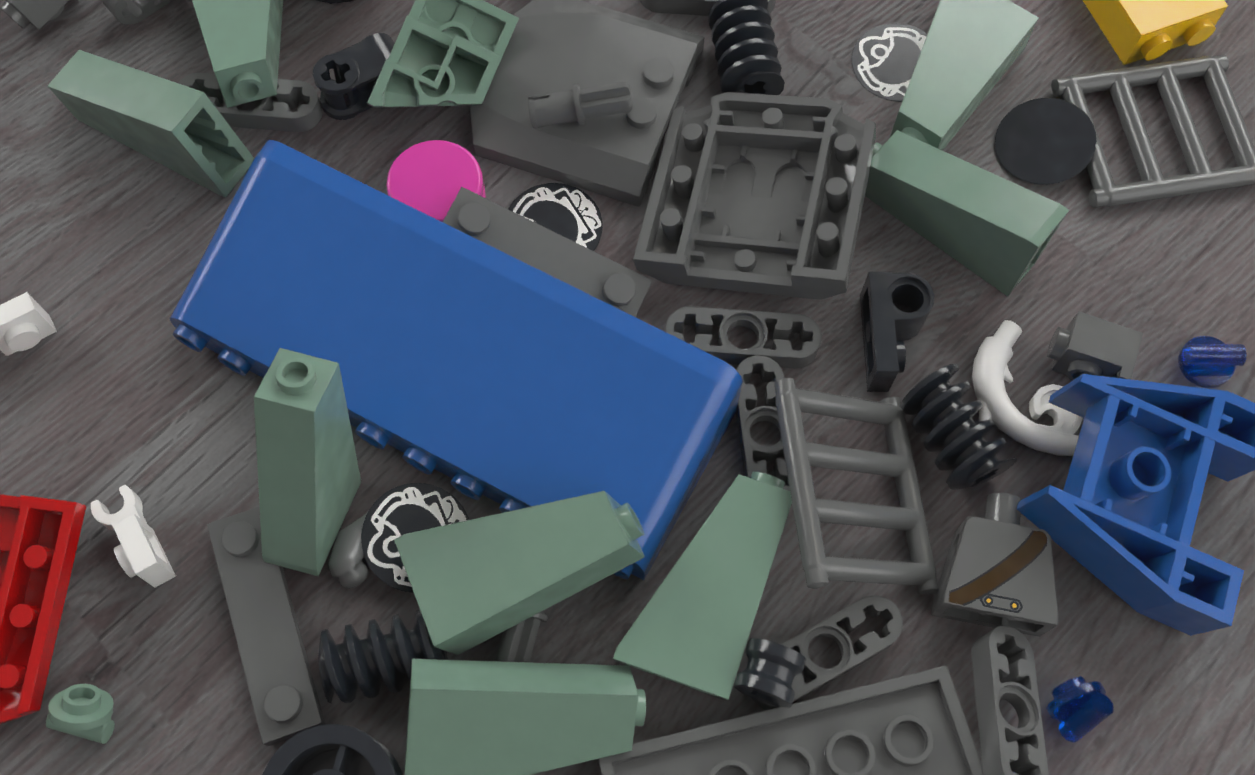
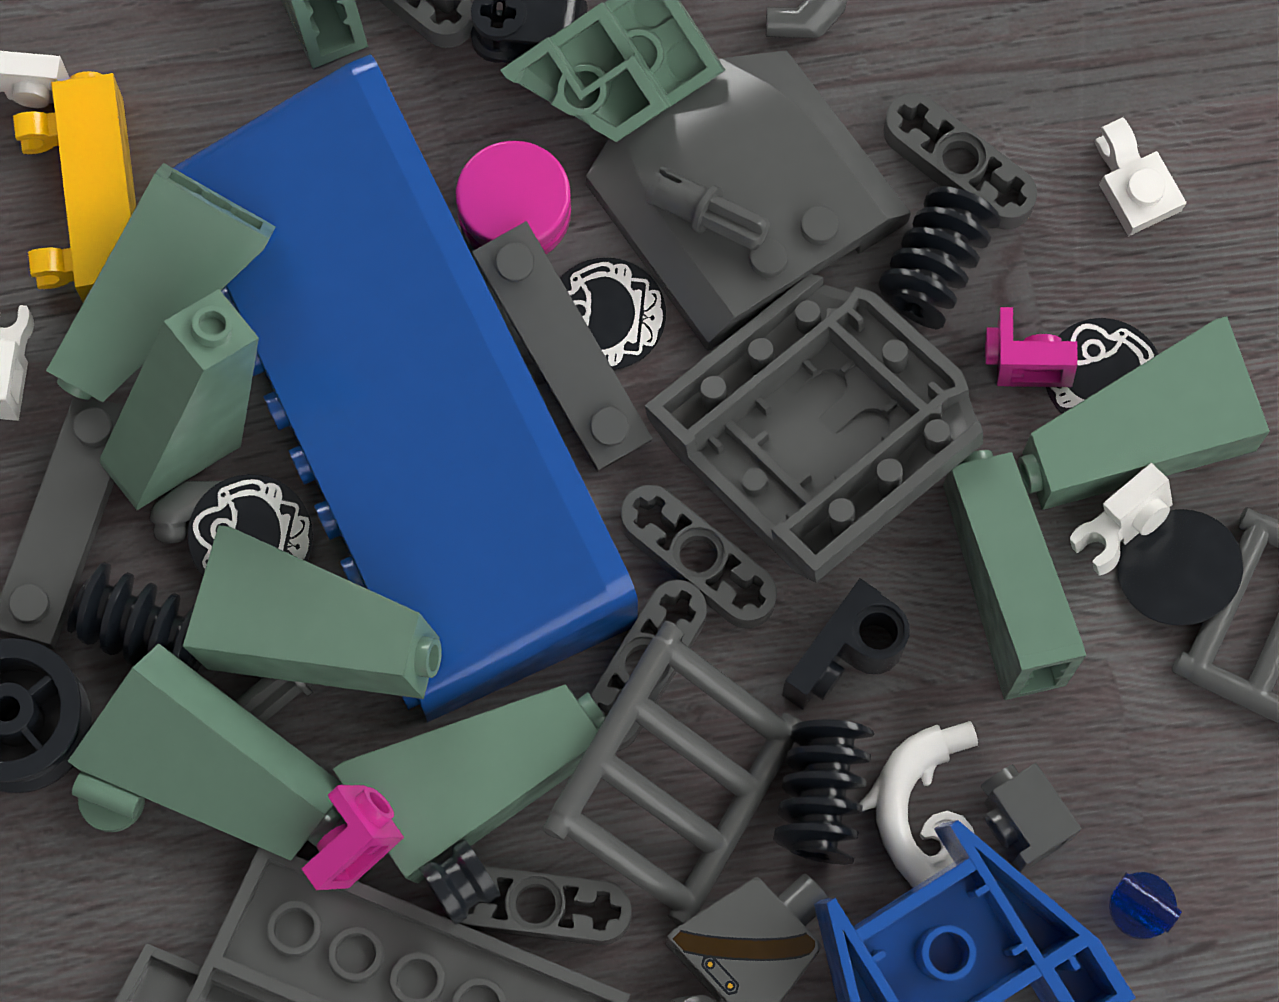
camera: 35 degrees right, 5 degrees up
(123, 369) = (95, 175): none -> yellow brick
(213, 372) = (169, 256): none -> sand green slope
(674, 708) = (357, 845): none -> dark pink bracket
(854, 76) = (1035, 362): none -> dark pink bracket
(995, 119) = (1132, 510): none -> white plate

